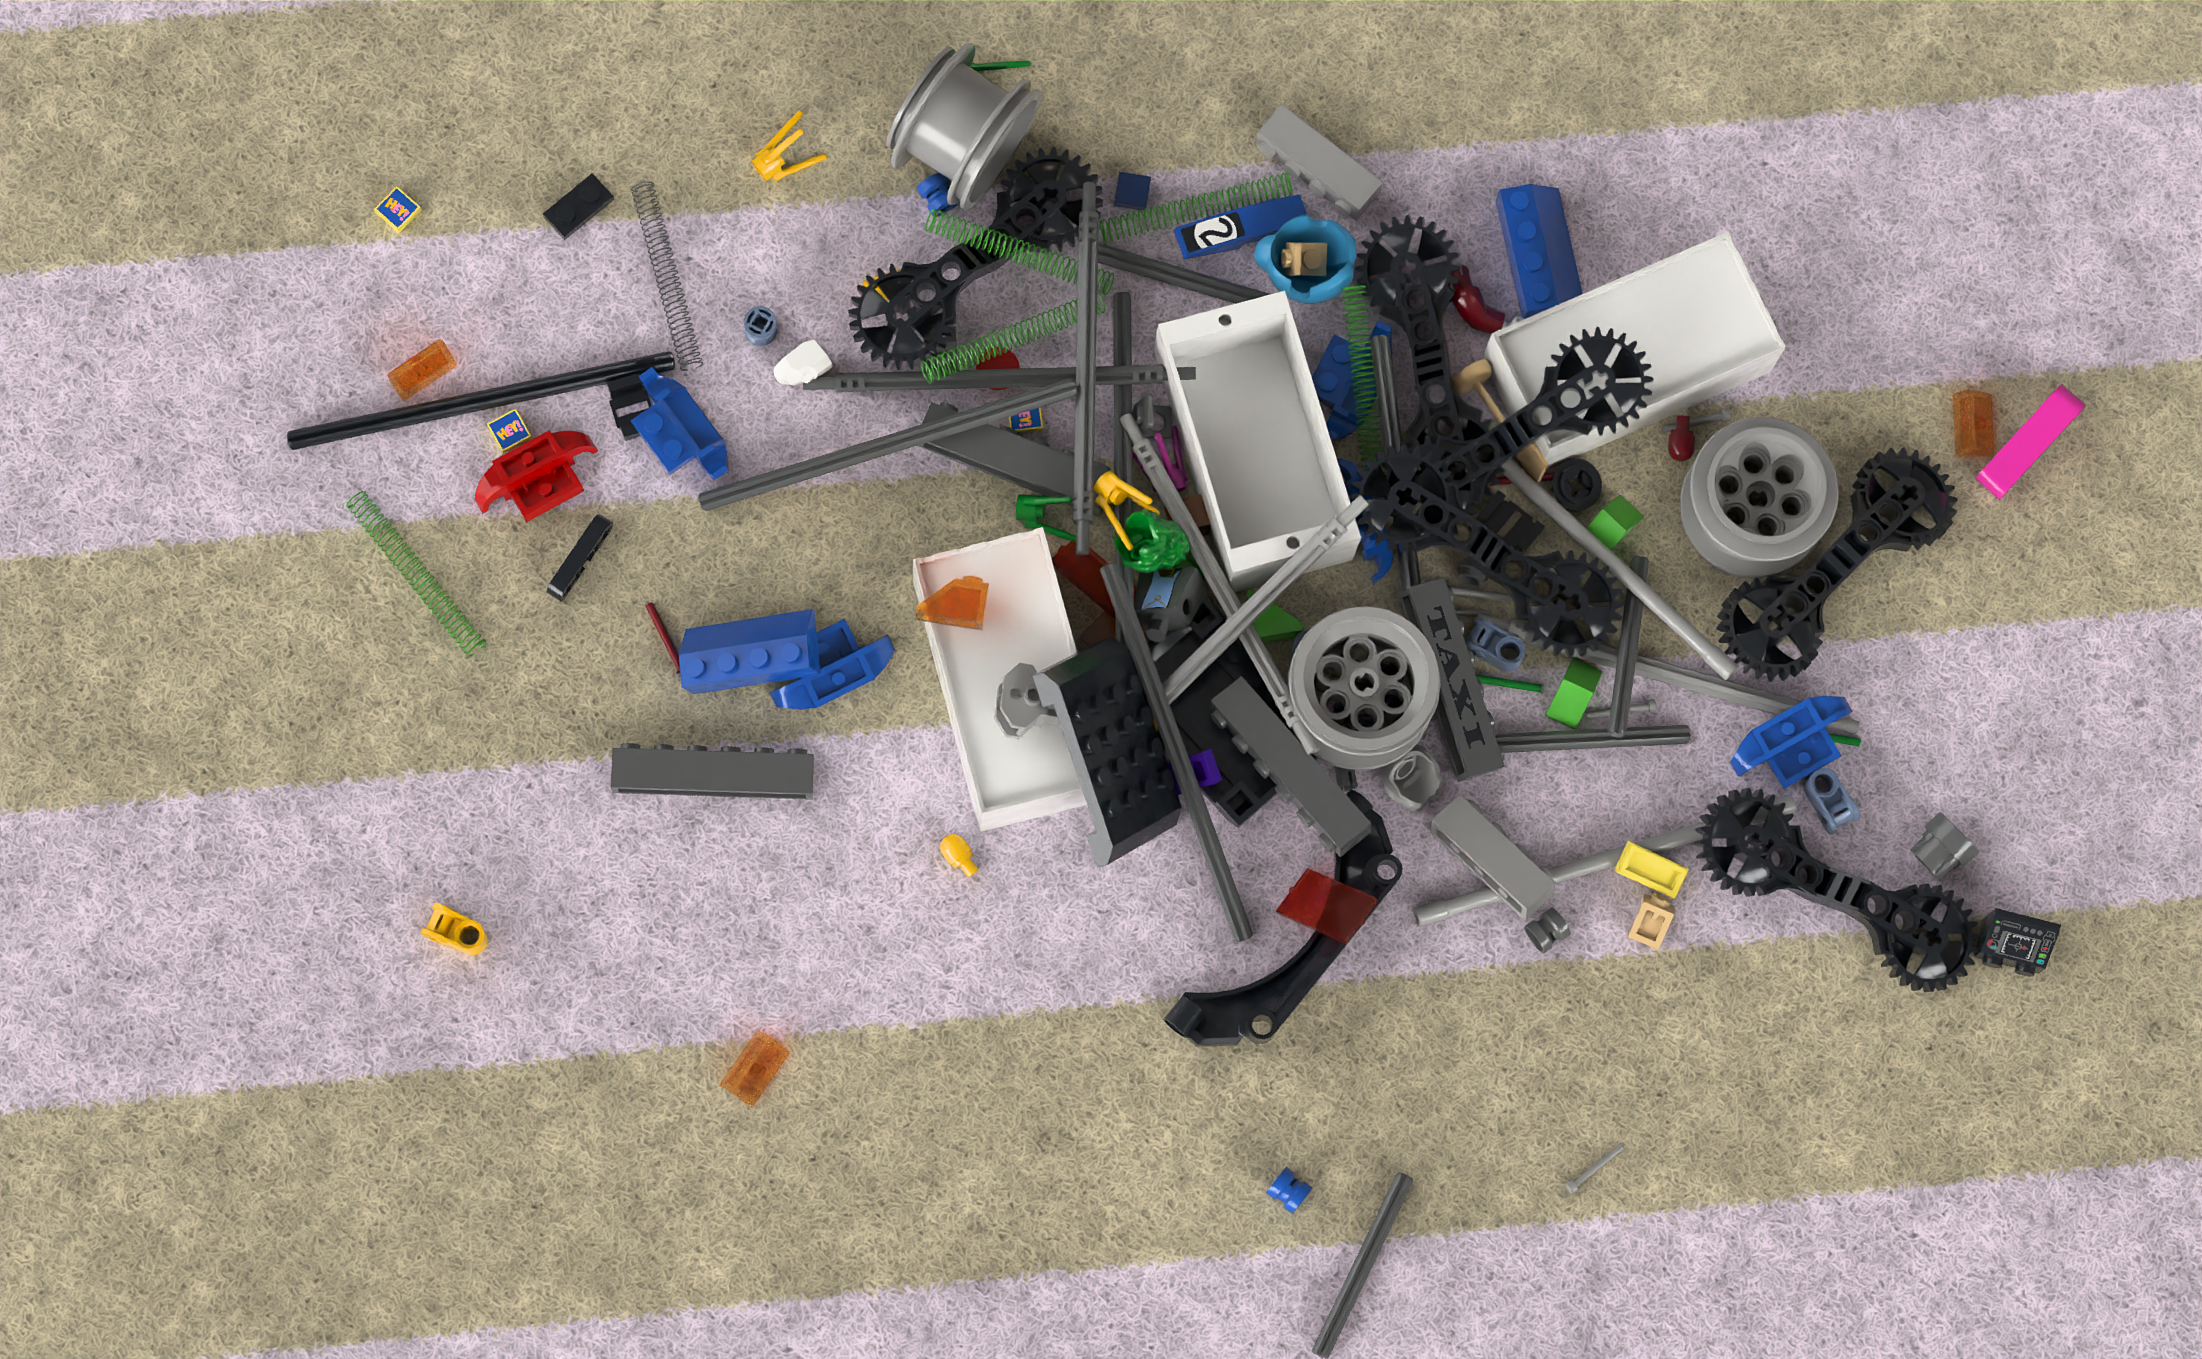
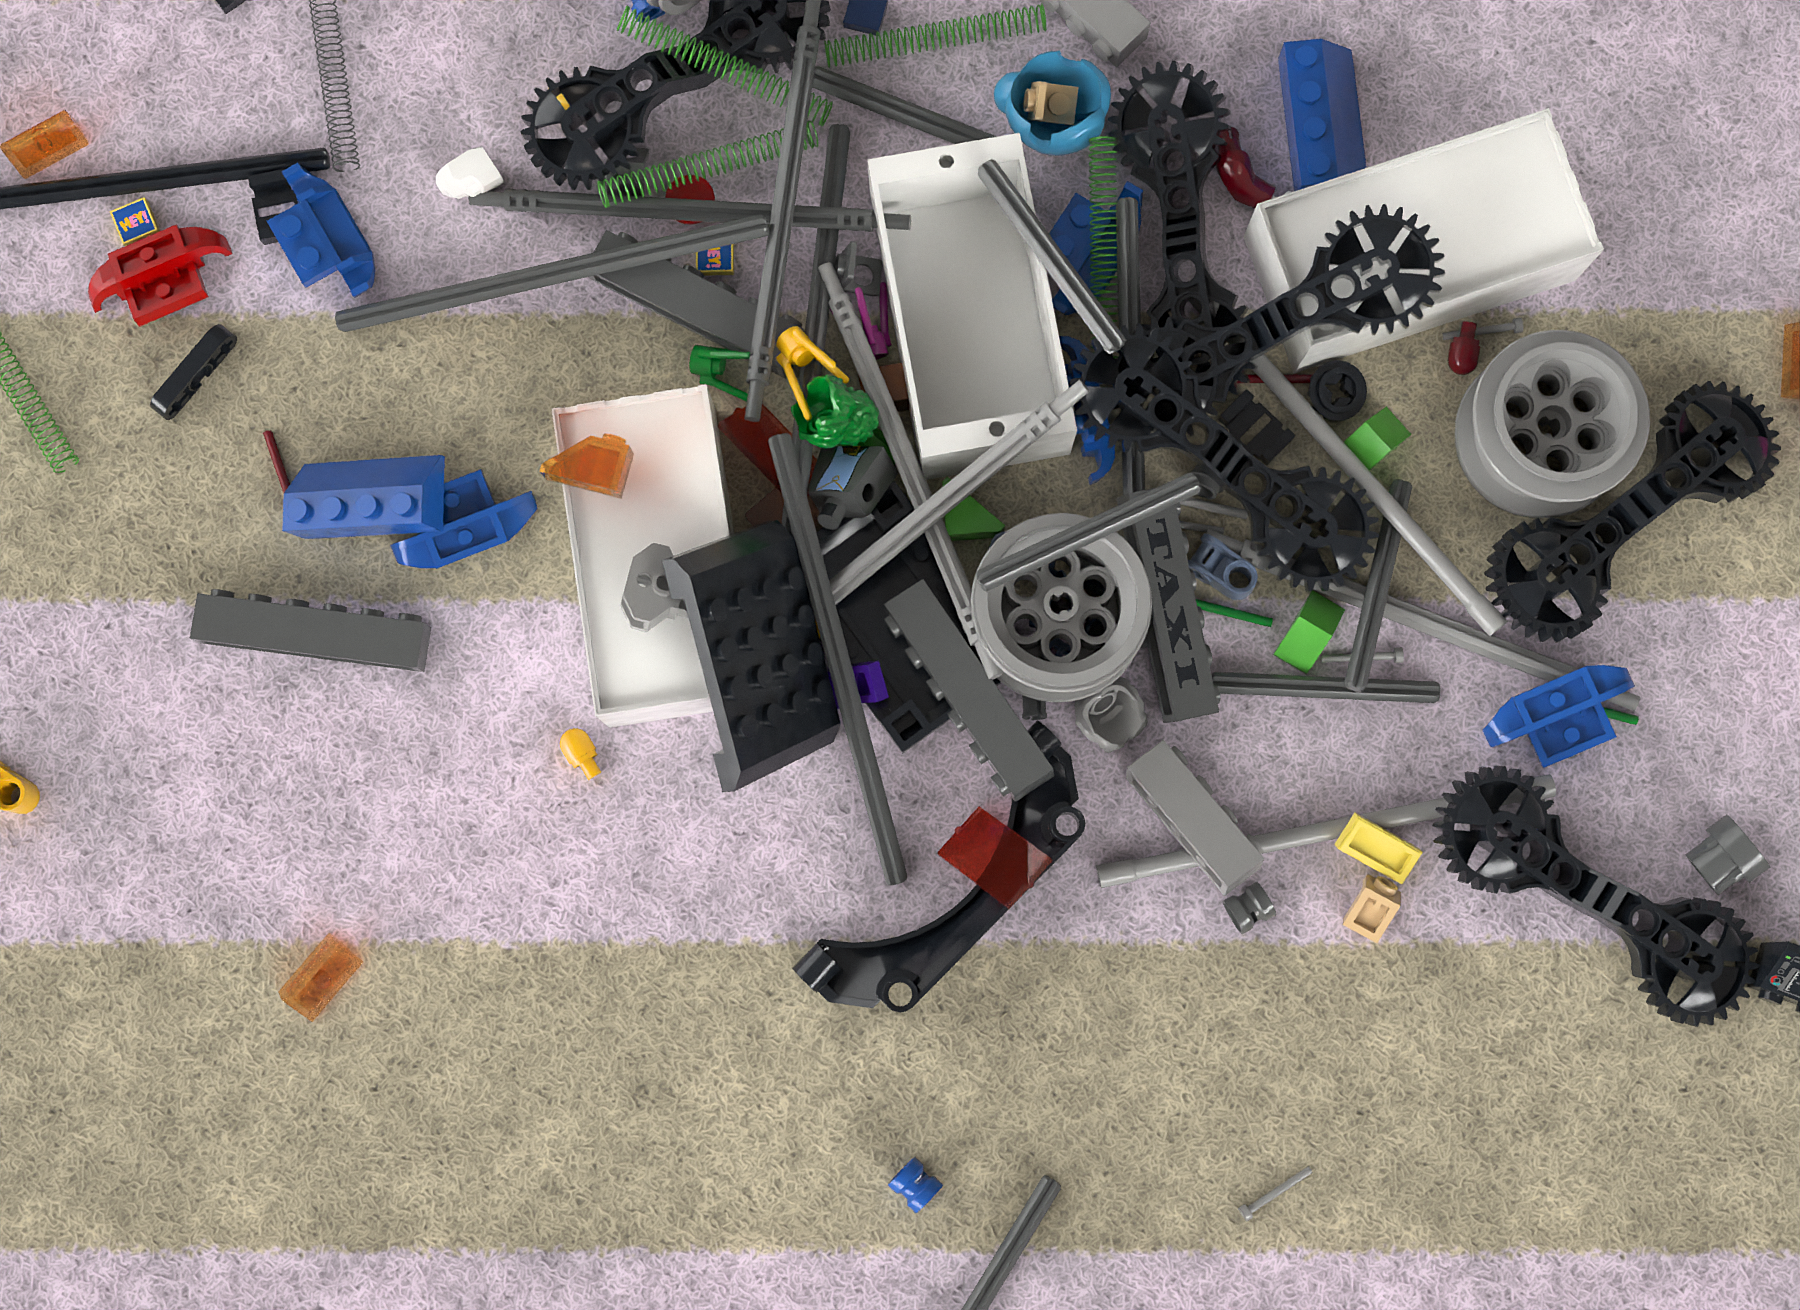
camera: 20 degrees right, 5 degrees up
(762, 332) = (431, 135): sand blue wheel -> none
(1236, 227) = (976, 61): blue slope -> none
(1323, 393) = (1051, 256): none -> axle
(1381, 619) = (1088, 531): none -> dark grey axle
(1473, 378) = (1229, 258): tan piece -> none
(1831, 802) = (1598, 789): sand blue piece -> none

